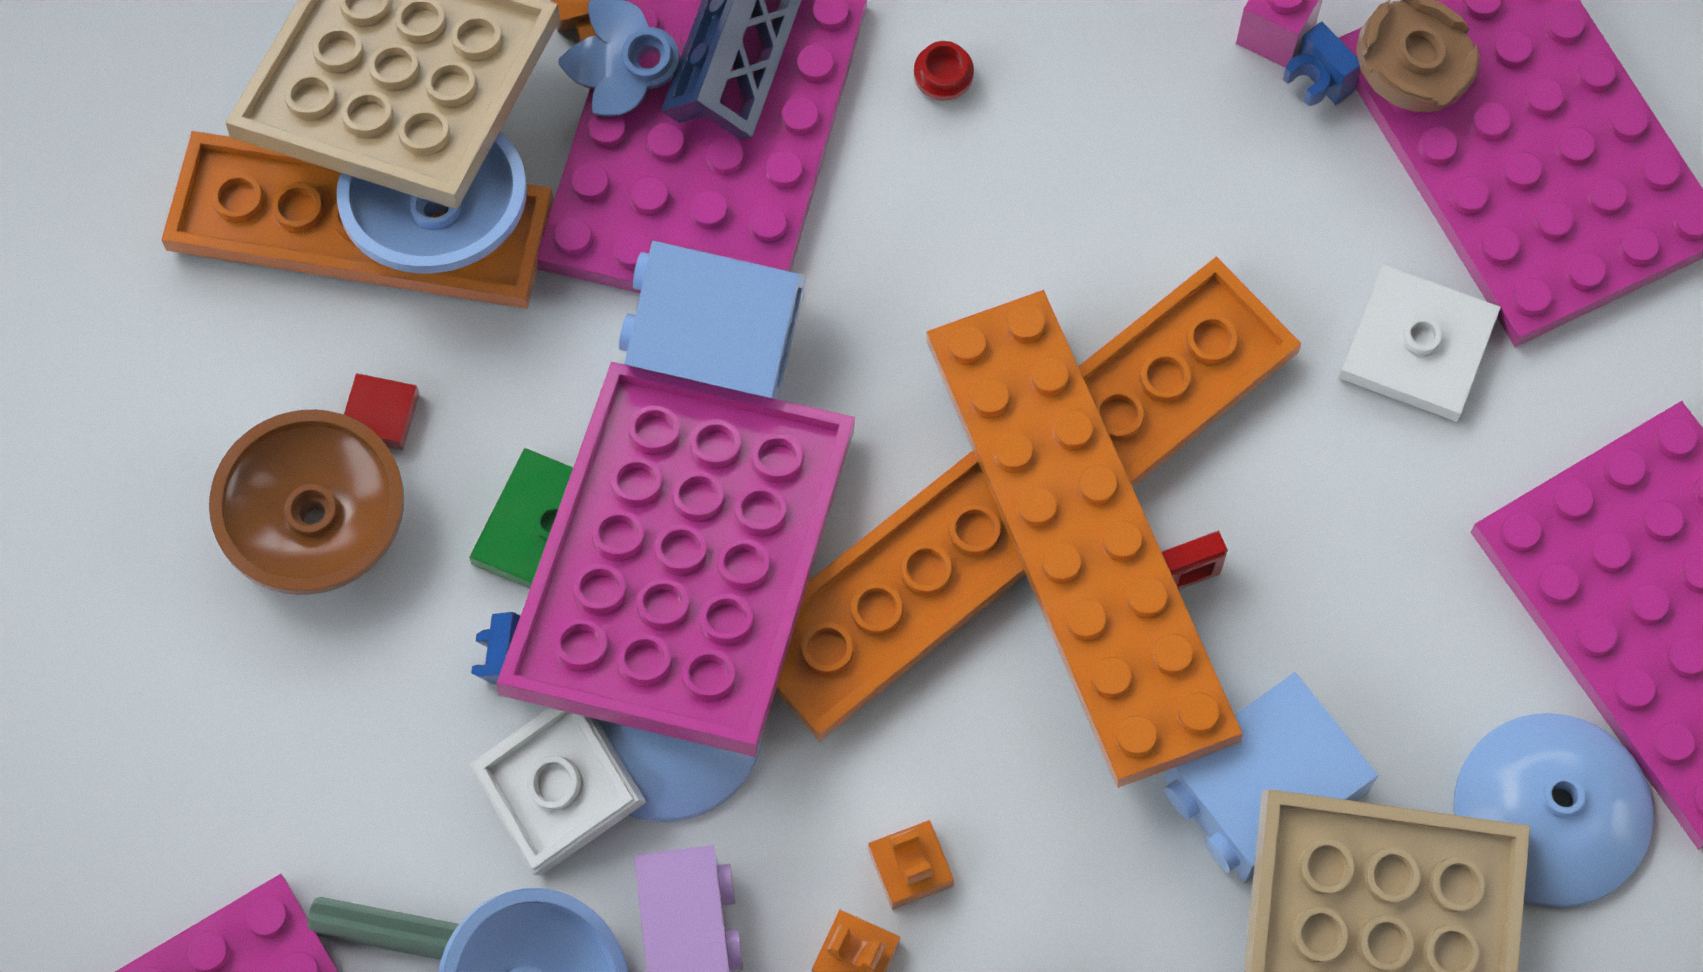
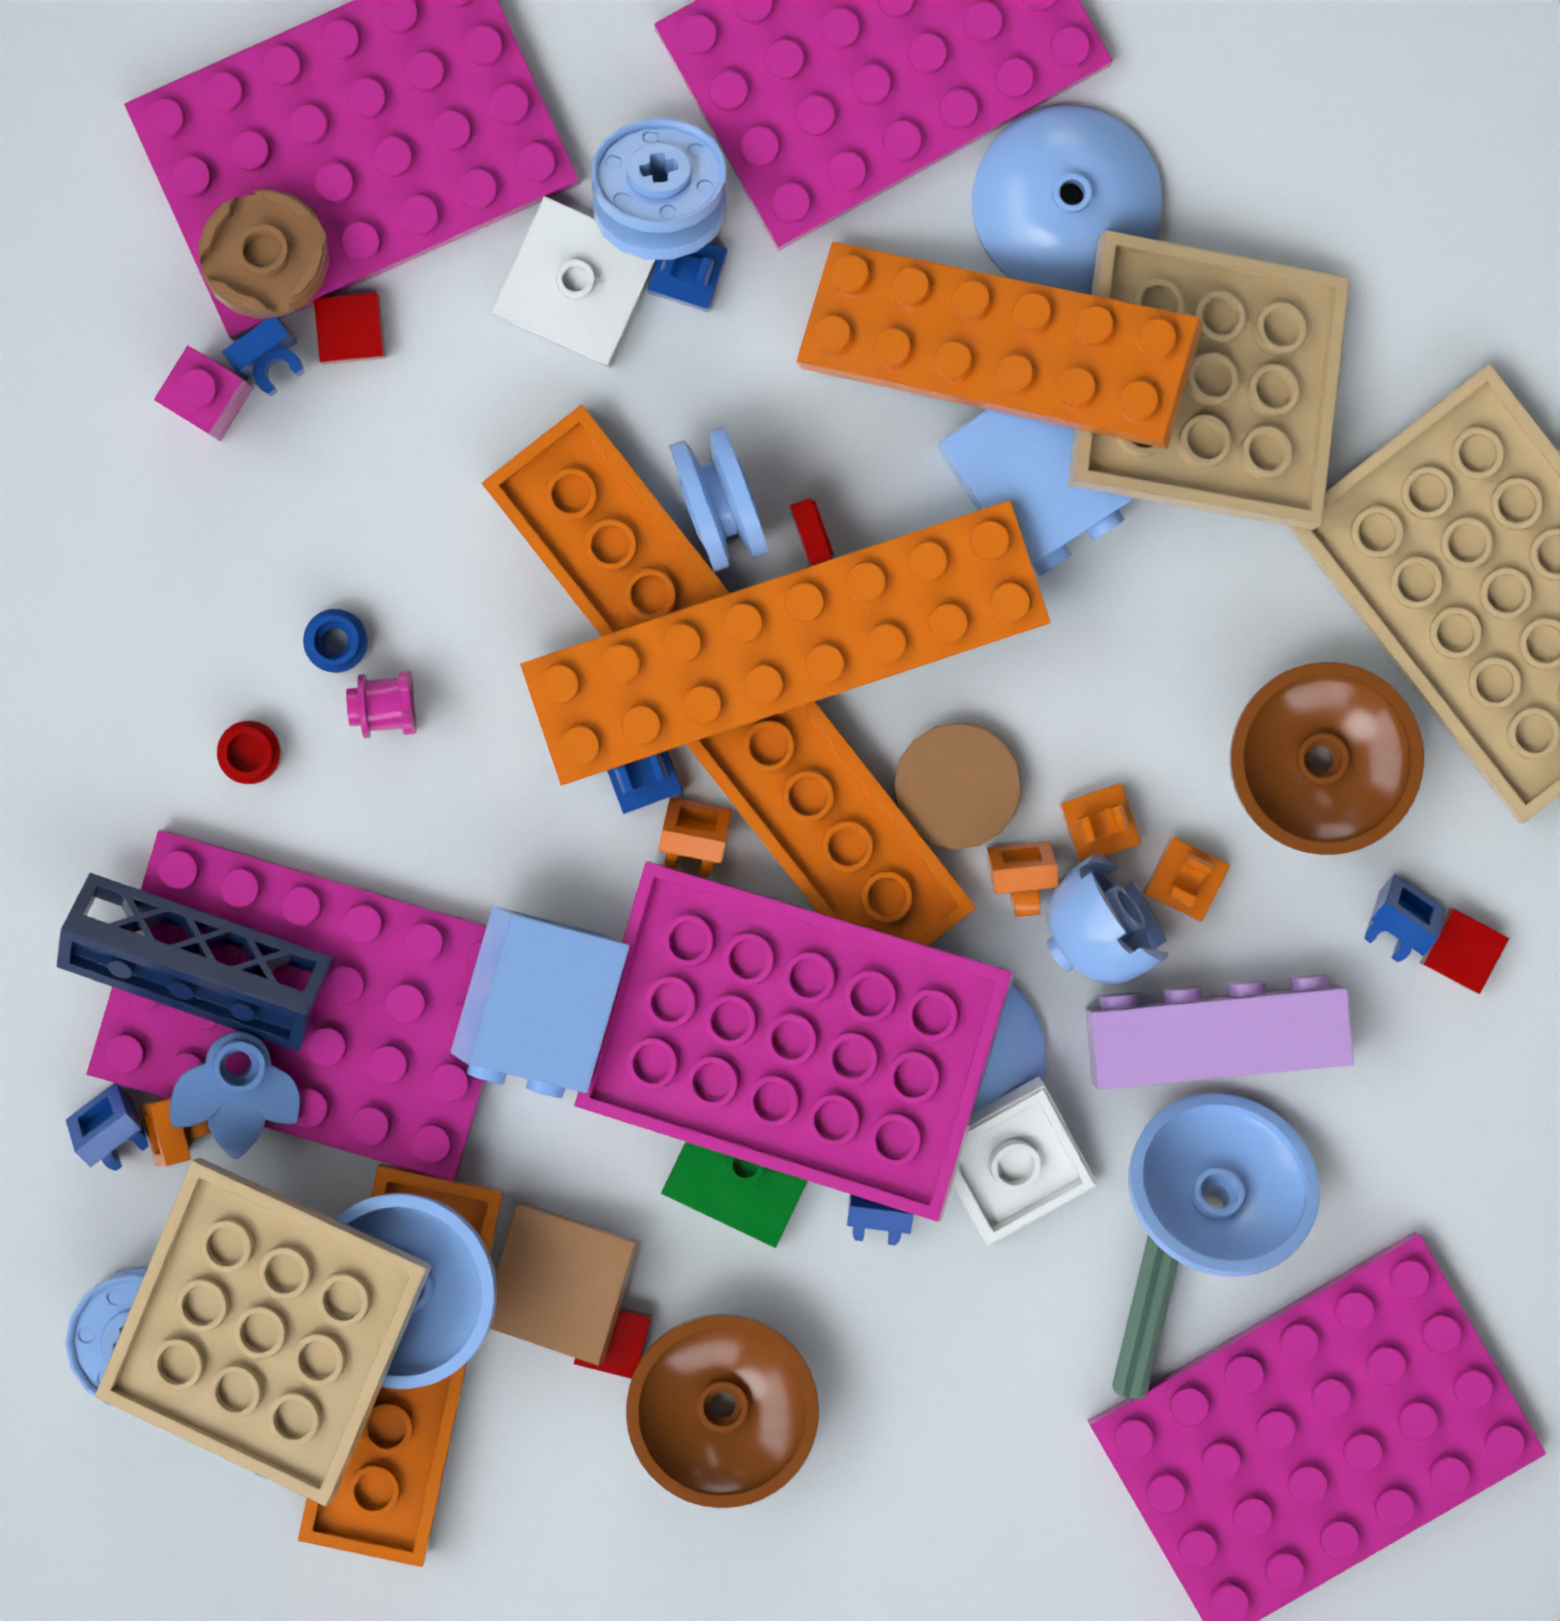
camera: 85 degrees left, 20 degrees up
(435, 358) = (562, 1283): none -> medium nougat tile
(807, 860) = (1101, 926): none -> light blue cylinder
(856, 783) = (1022, 873): none -> orange tile
(885, 463) = (694, 832): none -> orange tile
(934, 422) = (645, 781): none -> blue tile
(943, 719) = (957, 785): none -> medium nougat tile
(996, 181) = (382, 704): none -> dark pink brick
(1058, 126) = (315, 637): none -> blue plate
(1218, 462) = (719, 499): none -> light blue wheel
(1353, 144) = (349, 328): none -> red tile
(1400, 727) = (1000, 344): none -> orange plate
(1442, 443) = (689, 278): none -> blue tile
(1520, 400) = (659, 188): none -> light blue wheel

